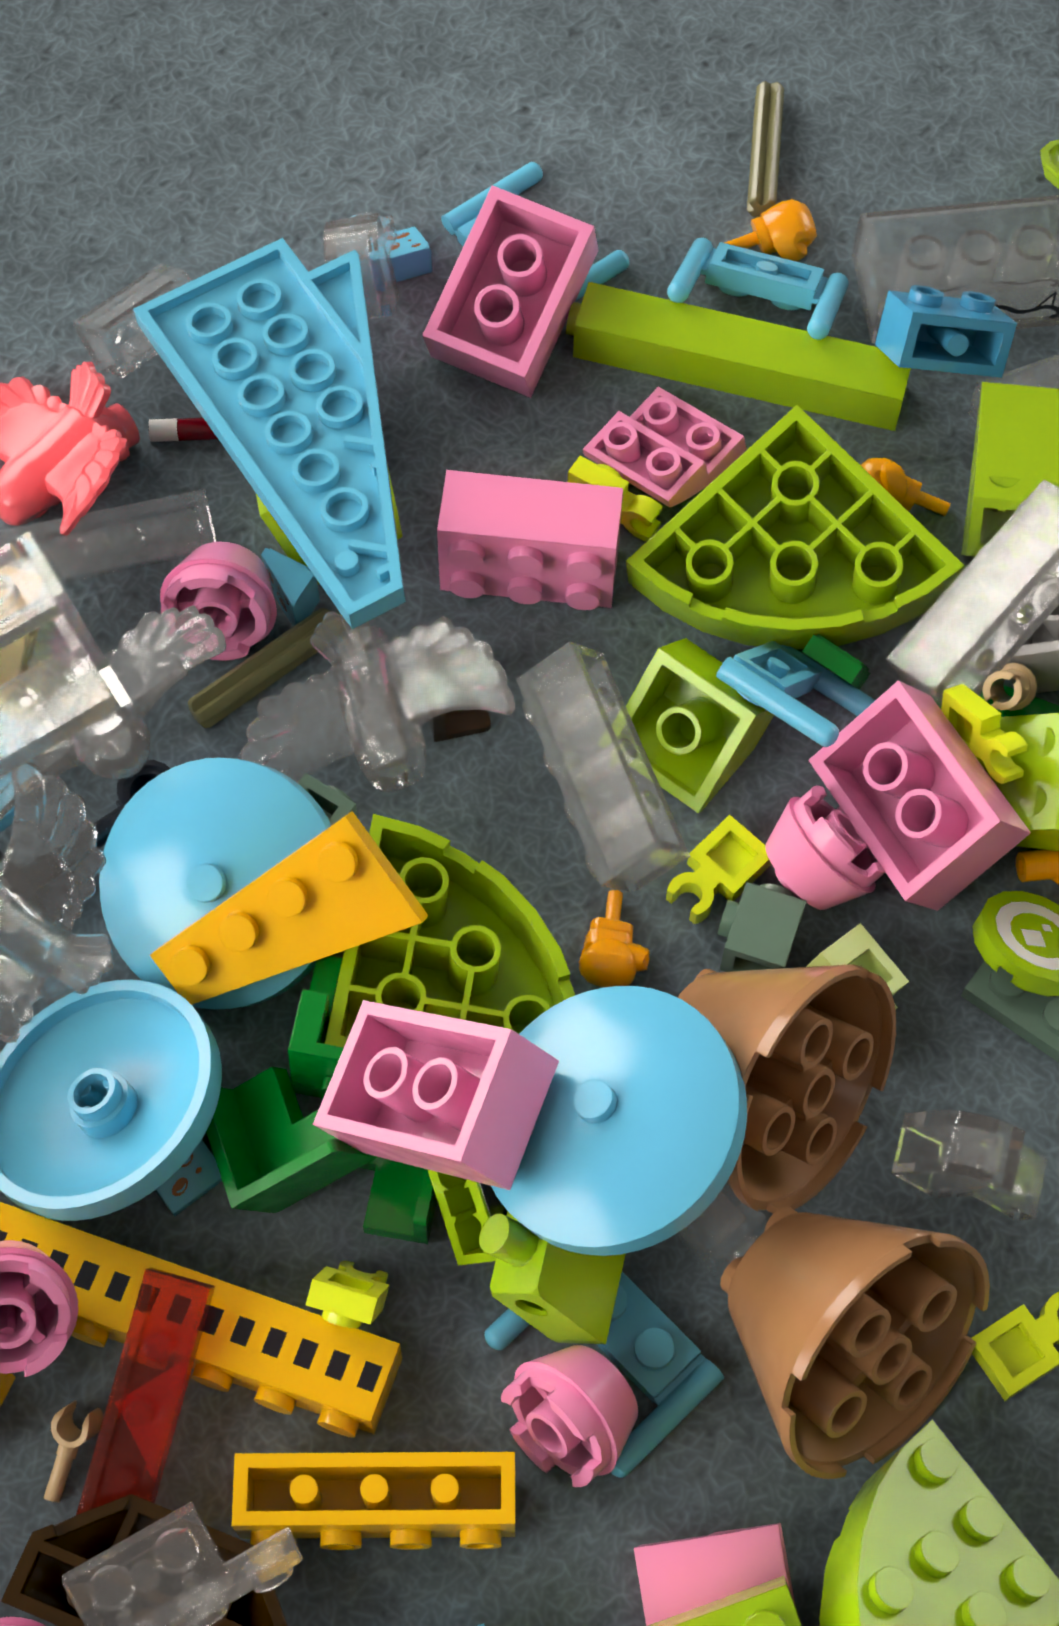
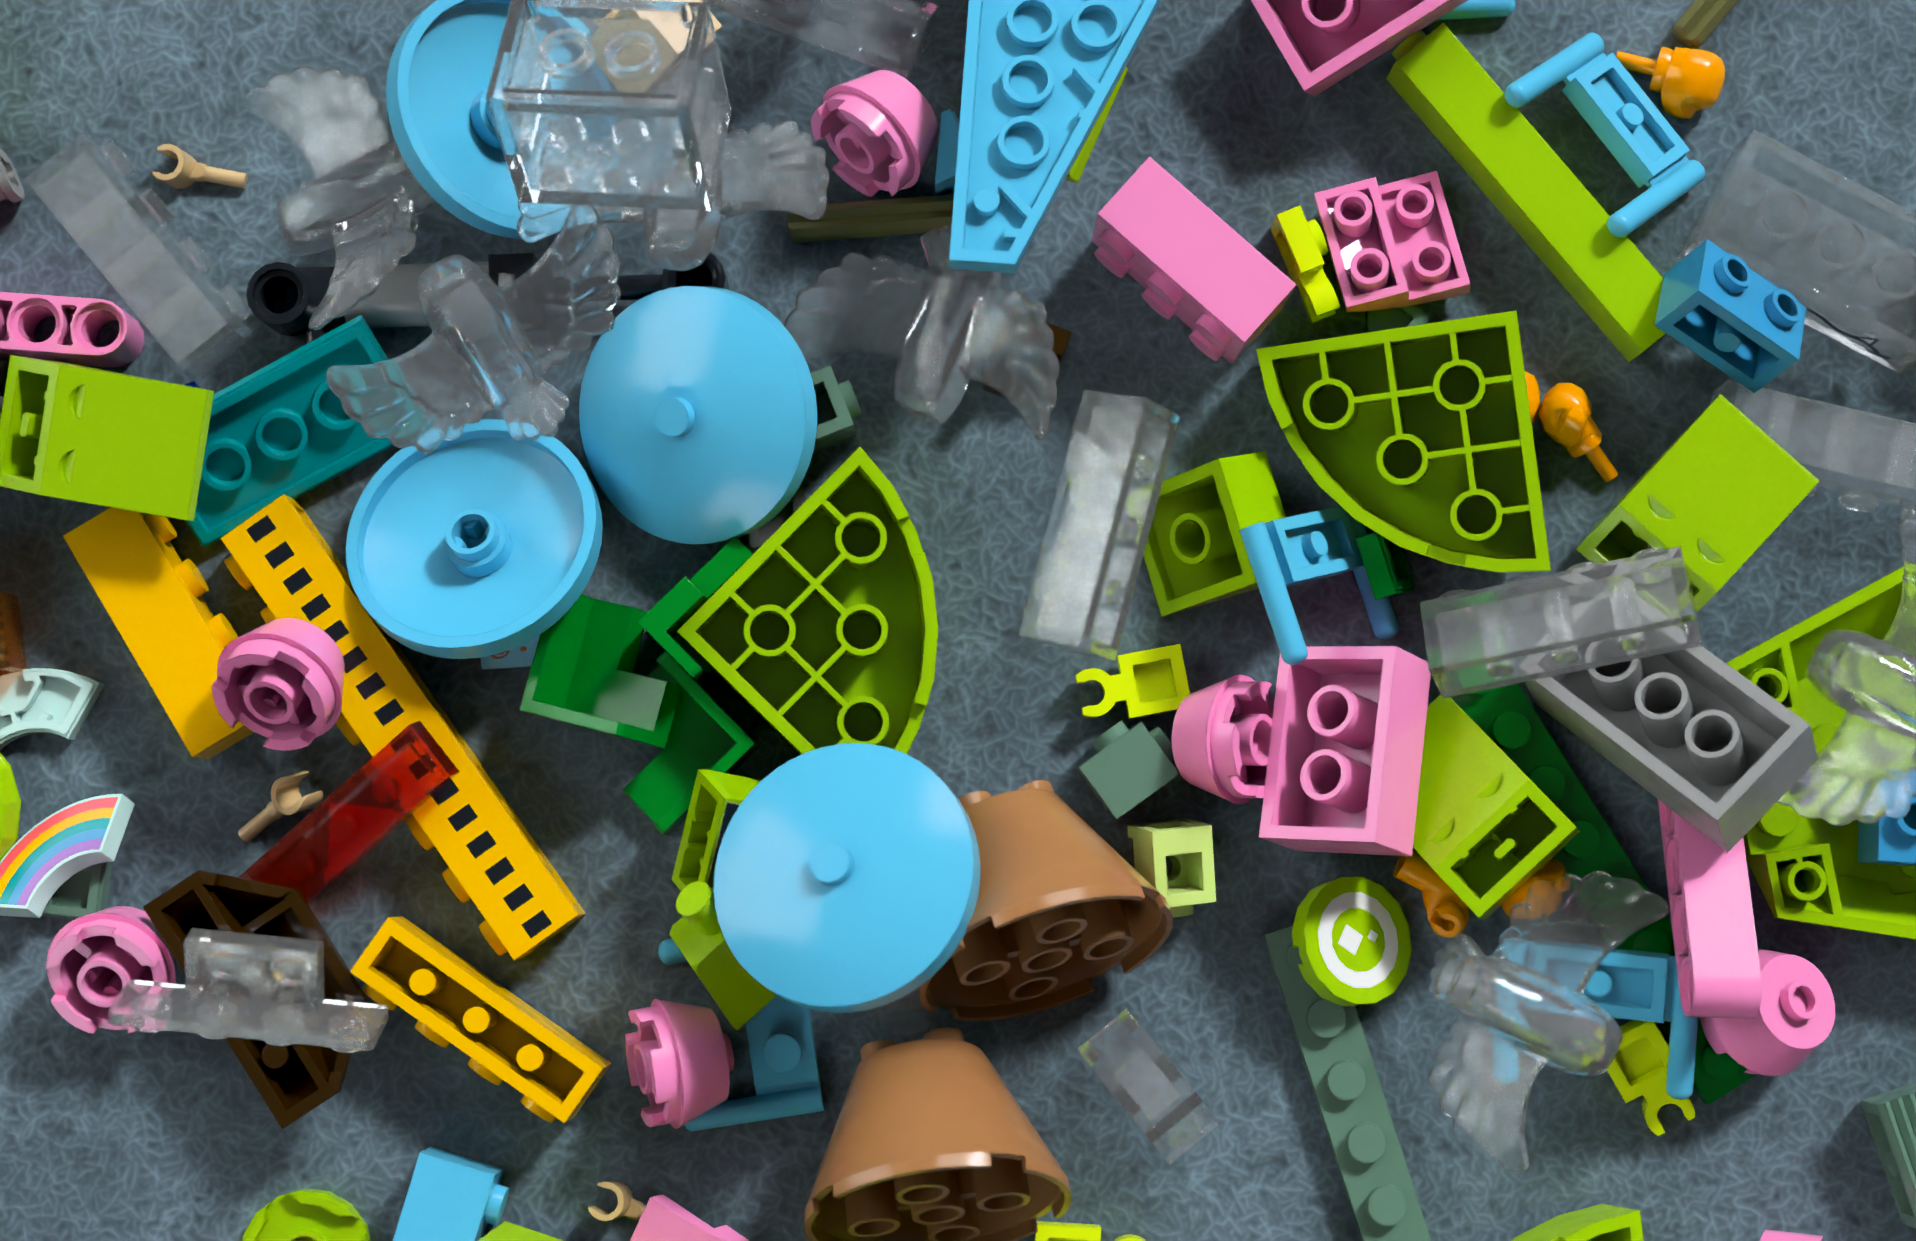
camera: 35 degrees right, 20 degrees up
(301, 910) = (728, 500): yellow wing -> none
(348, 1295) = (566, 845): neon yellow plate -> none
(437, 1093) = (718, 758): bright pink brick -> none
(609, 952) = (989, 693): light orange piece -> none
(619, 1583) = (625, 1207): none -> tan hand
(980, 729) = (1446, 727): neon yellow plate -> none
(1024, 687) = (1506, 706): tan pin -> none

